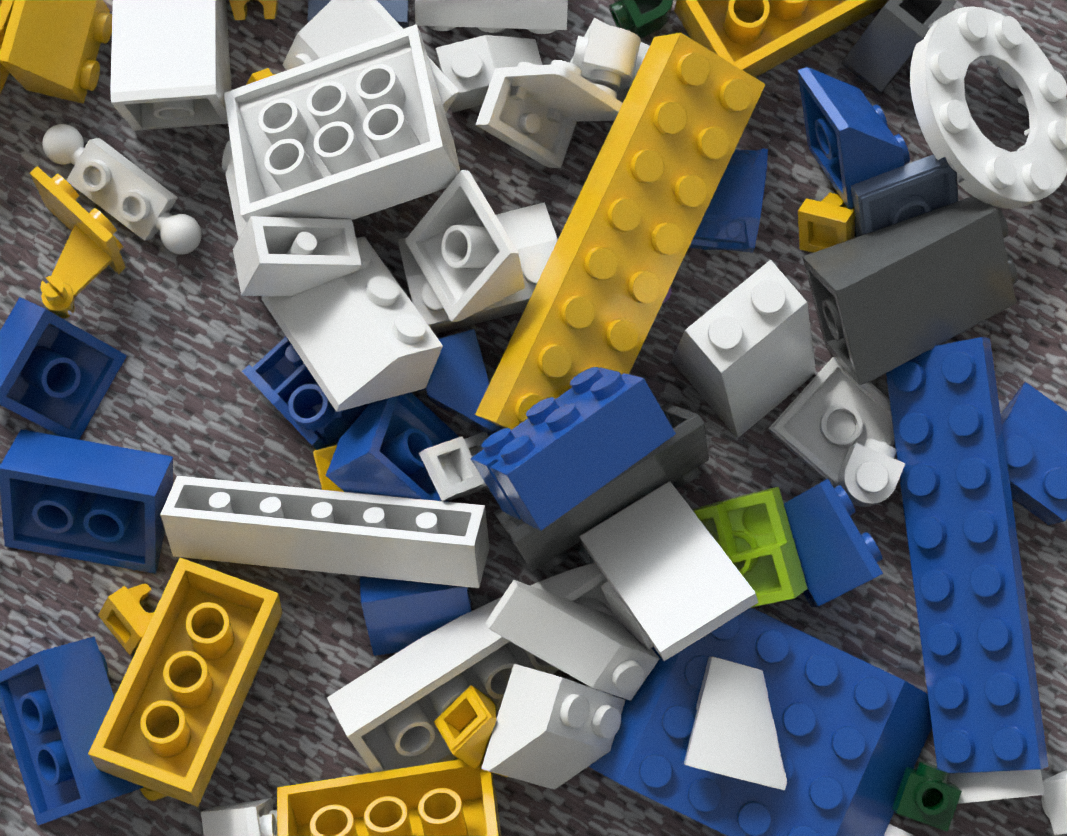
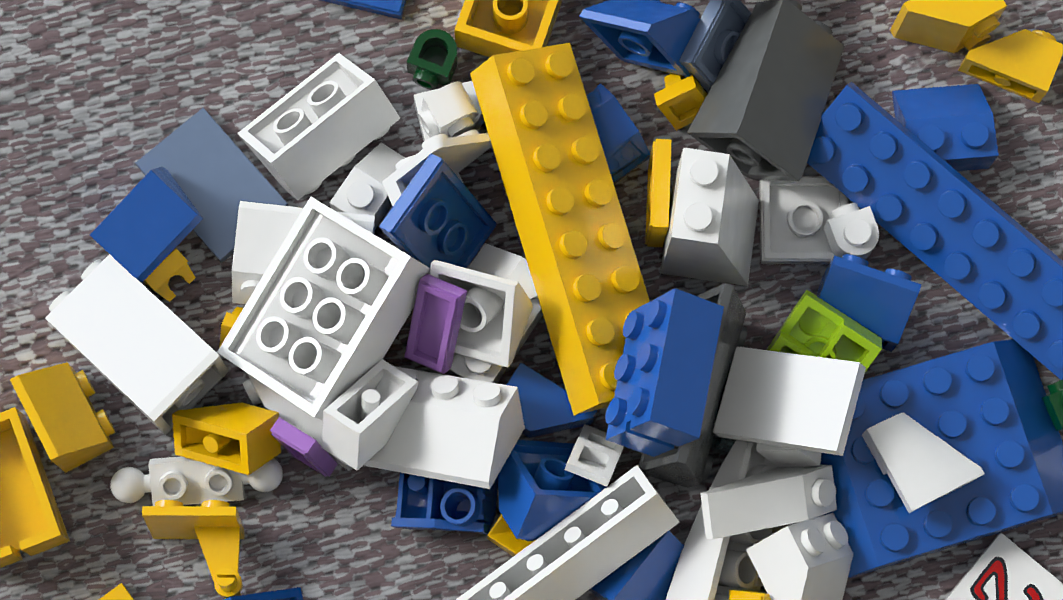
camera: 50 degrees left, 5 degrees down
(173, 174) = (227, 436): none -> yellow slope
(220, 232) = (303, 447): none -> medium lavender tile
(423, 228) = (435, 323): none -> medium lavender tile
(511, 142) = (438, 217): none -> blue tile
(741, 269) = (658, 193): none -> yellow tile

